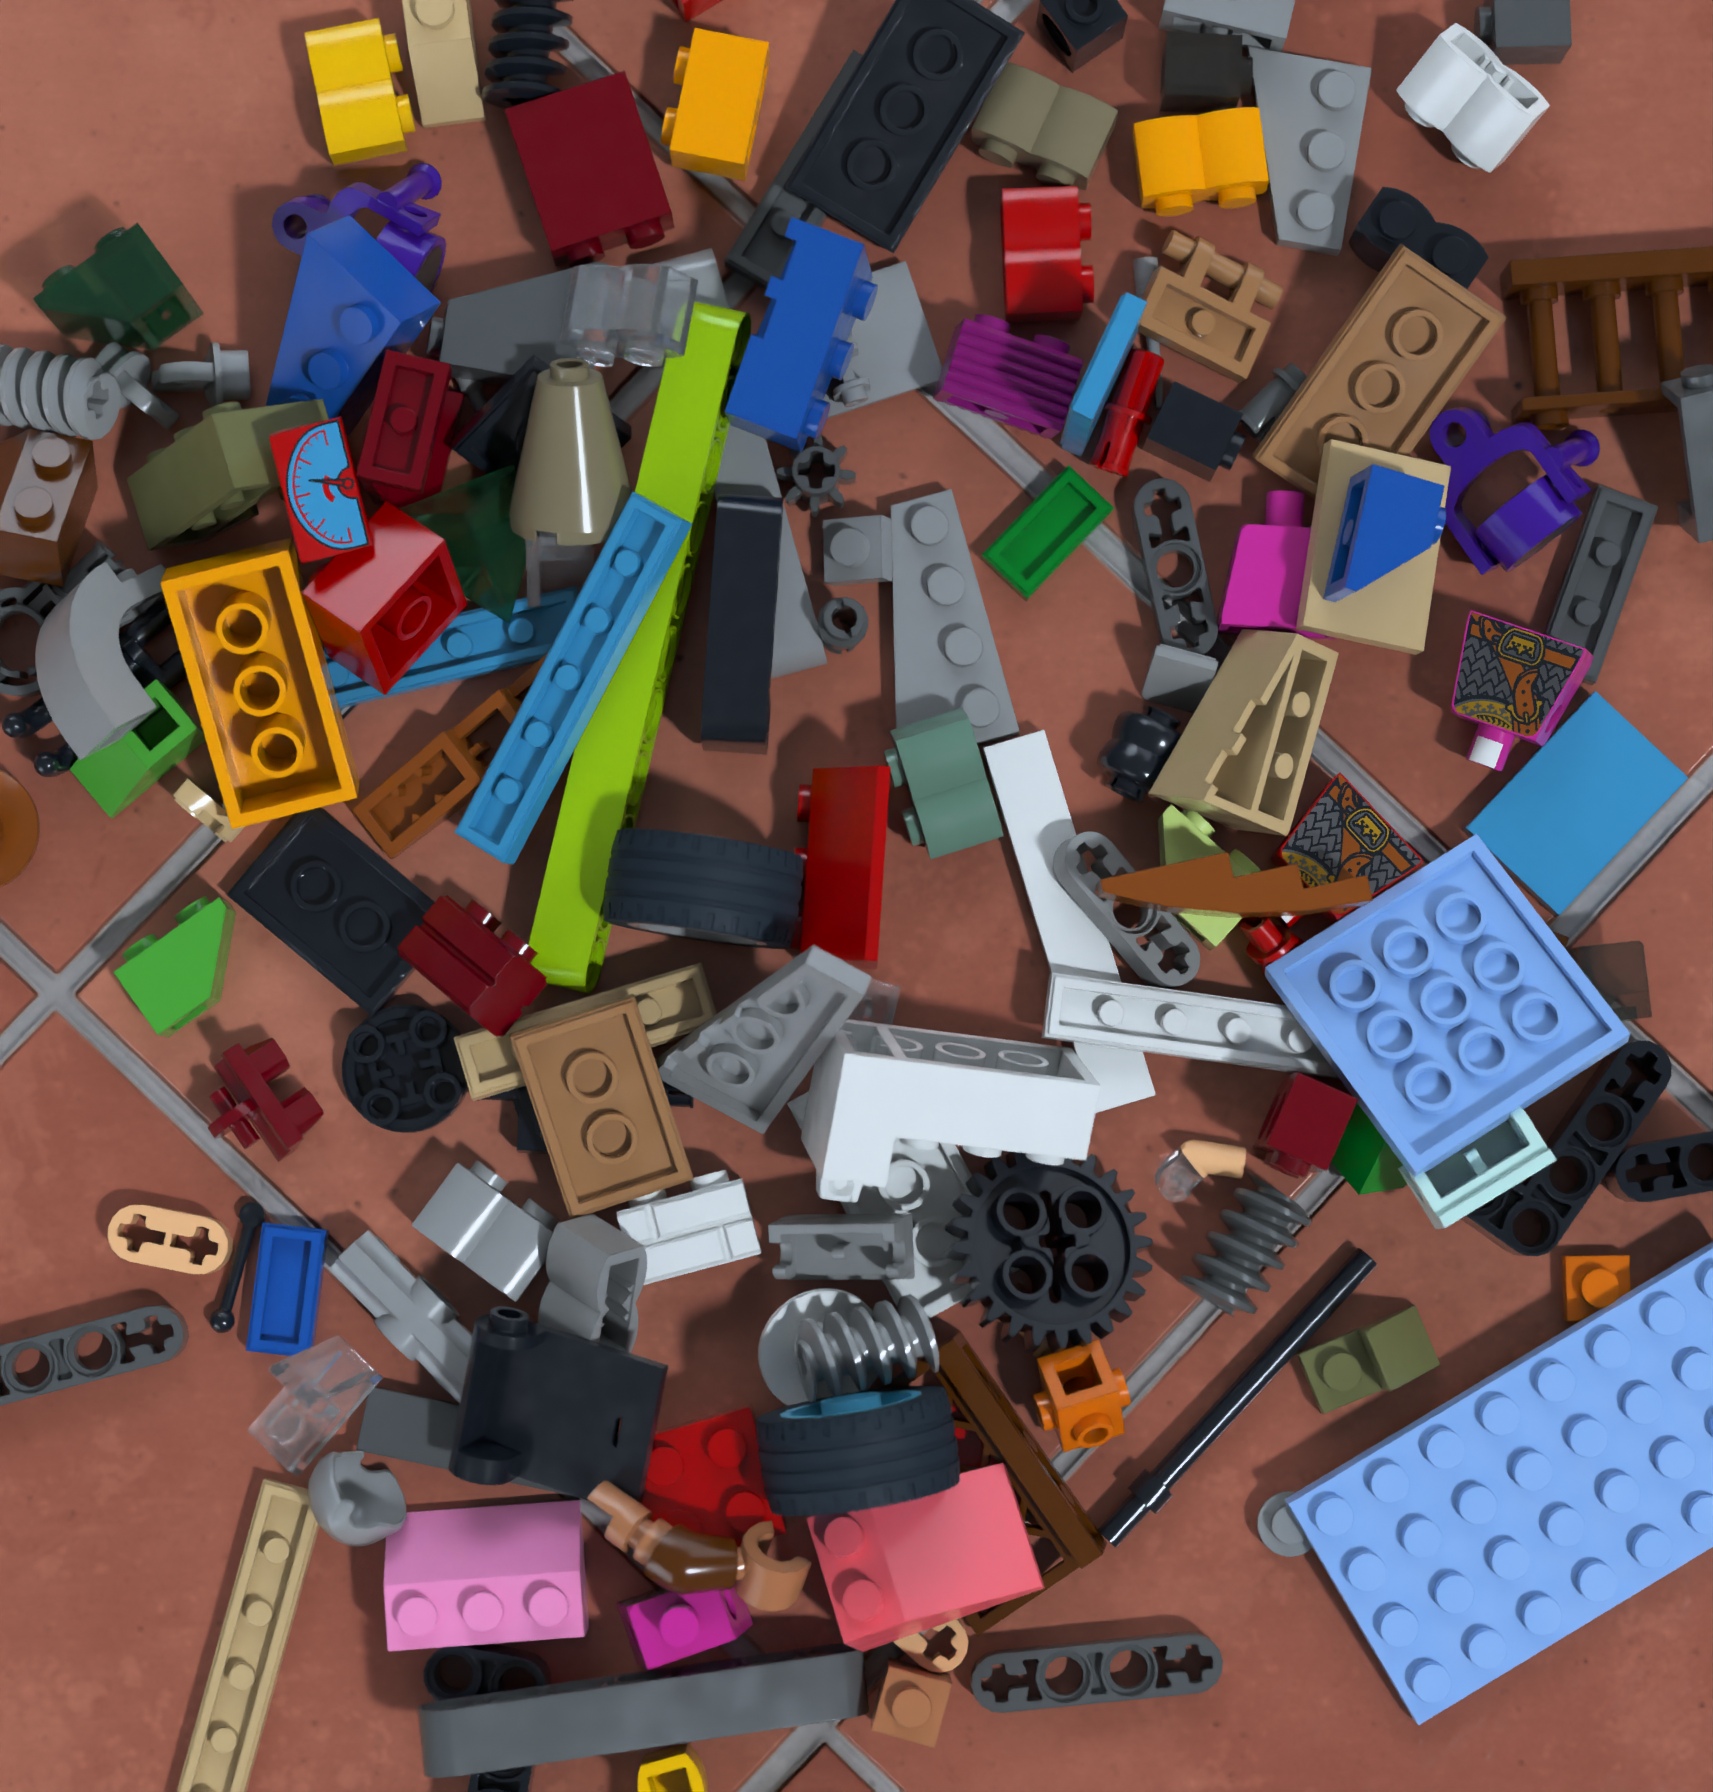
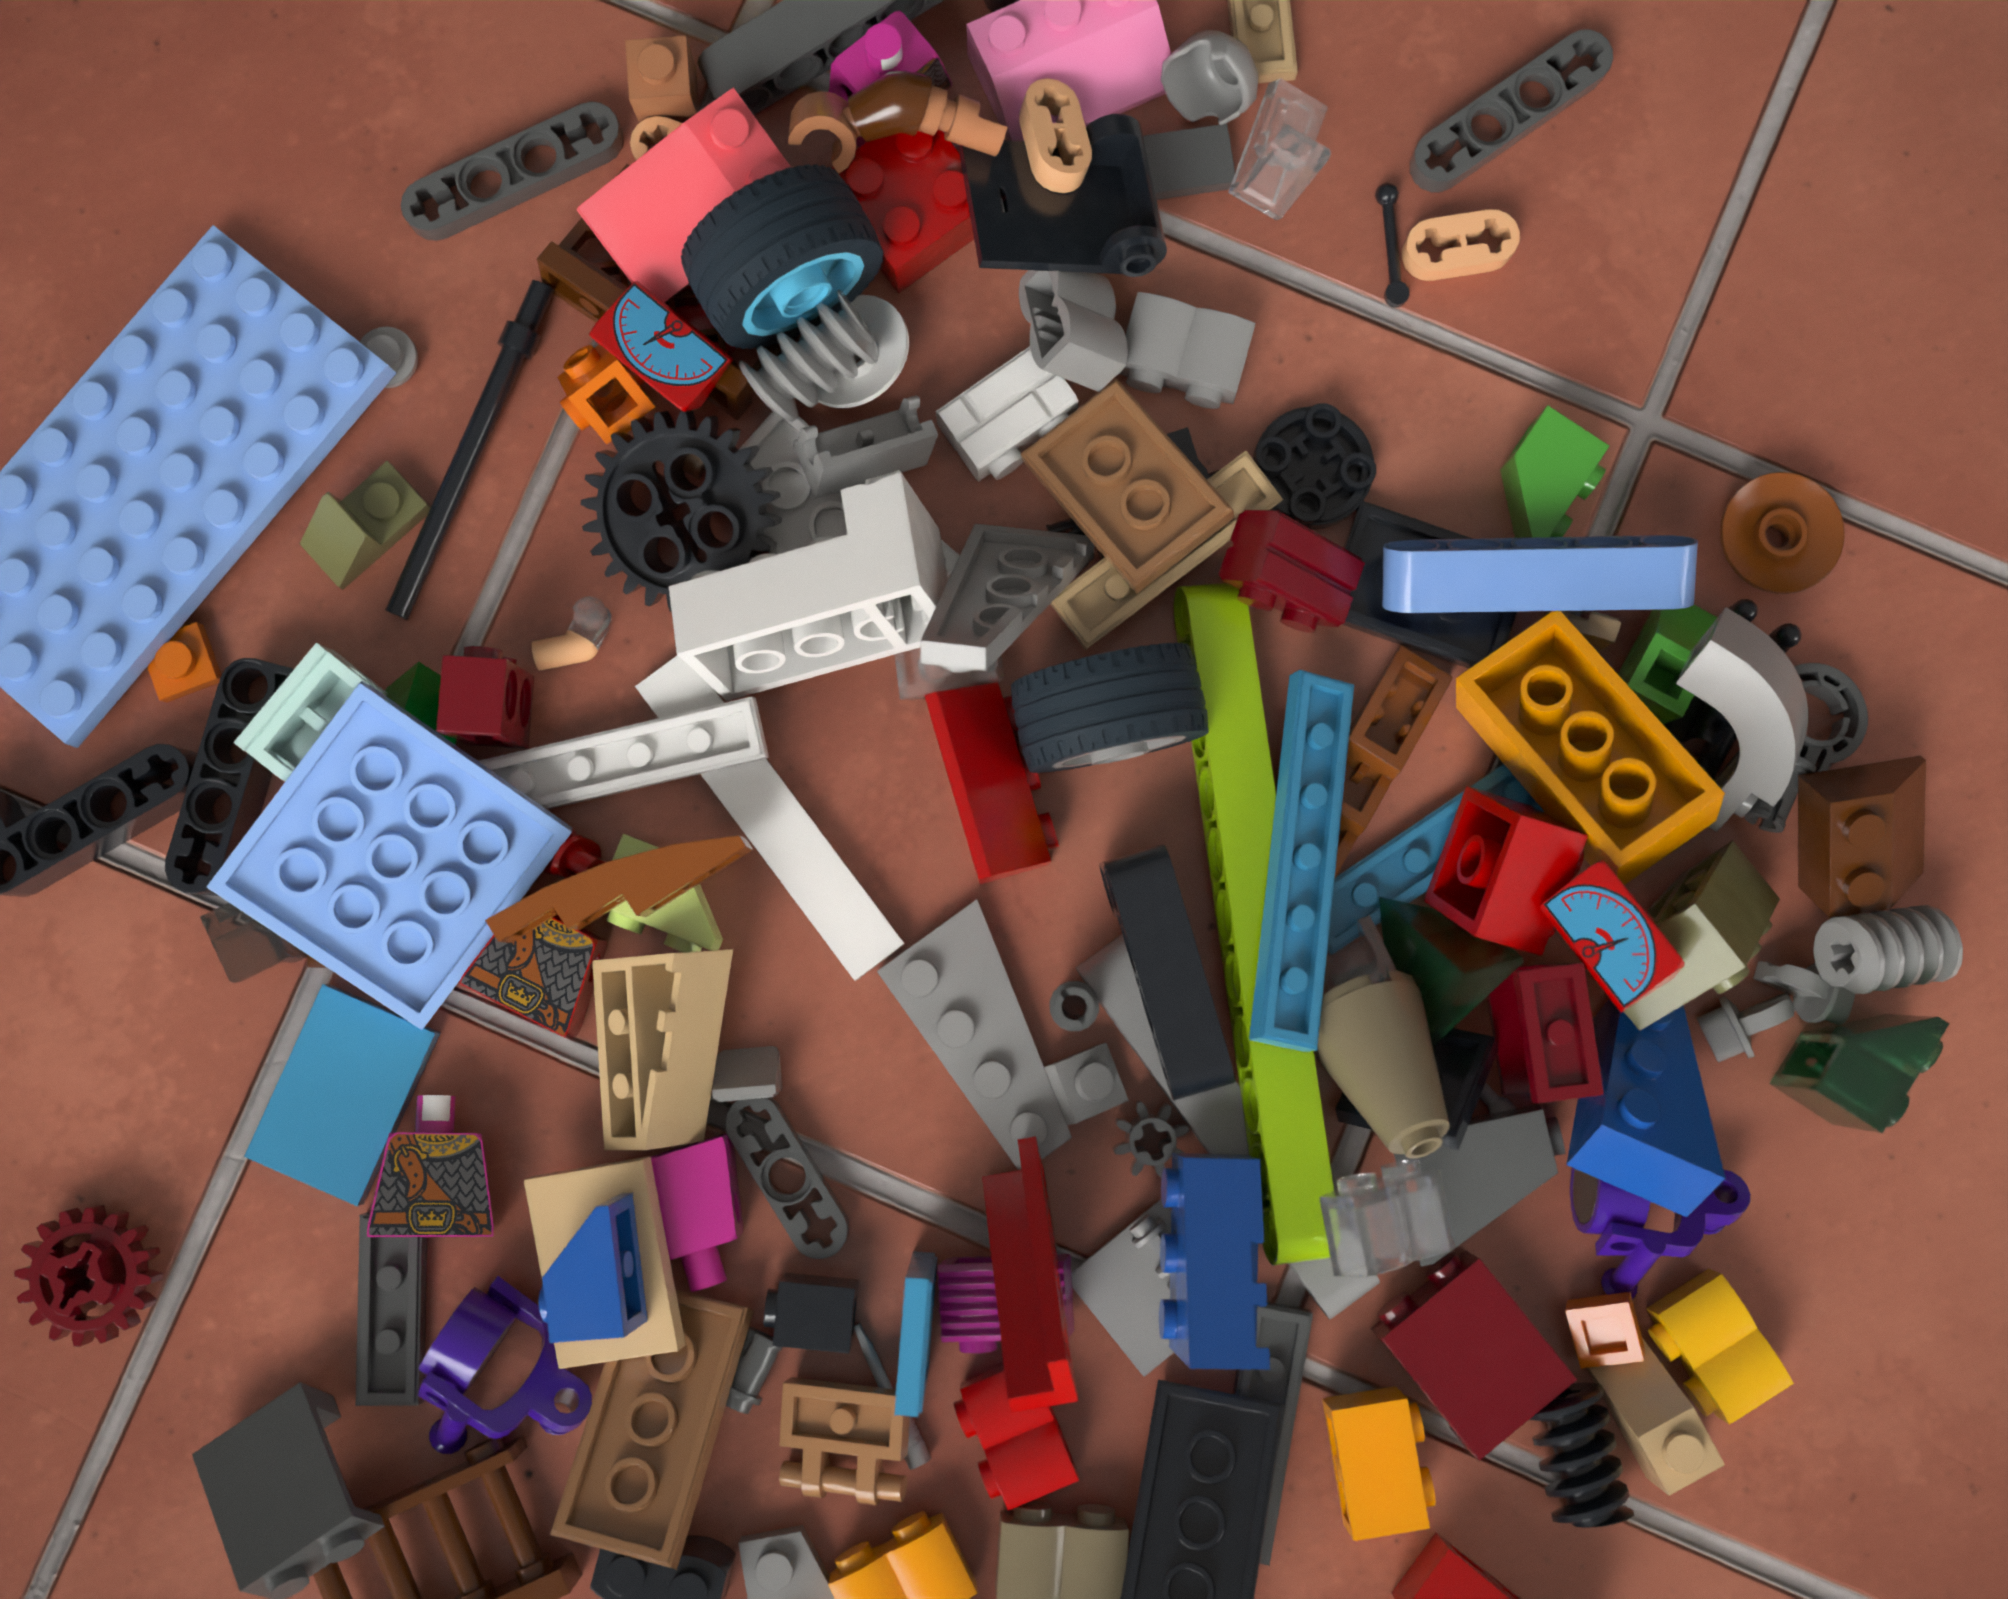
camera: 160 degrees right, 0 degrees up
(236, 868) = (1539, 574): none -> medium blue beam
(247, 1077) = (1450, 409): dark red hips -> none
(287, 1289) = (1341, 240): blue tile -> none
(407, 1310) = (1227, 256): light grey piece -> none
(456, 144) = (1605, 1330): none -> plate
(552, 1488) = (1066, 134): none -> light nougat beam
(944, 784) = (926, 894): sand green brick -> none
(982, 380) = (1028, 1285): none -> red fence
(1010, 1410) = (661, 347): none -> slope
(1047, 533) = (918, 1167): green tile -> none
(1127, 412) = (882, 1308): red axle -> none
(1138, 751) = (758, 991): black piece -> none
(1143, 957) = (688, 805): light grey beam -> none
(1246, 1248) = (502, 577): dark grey piece -> none

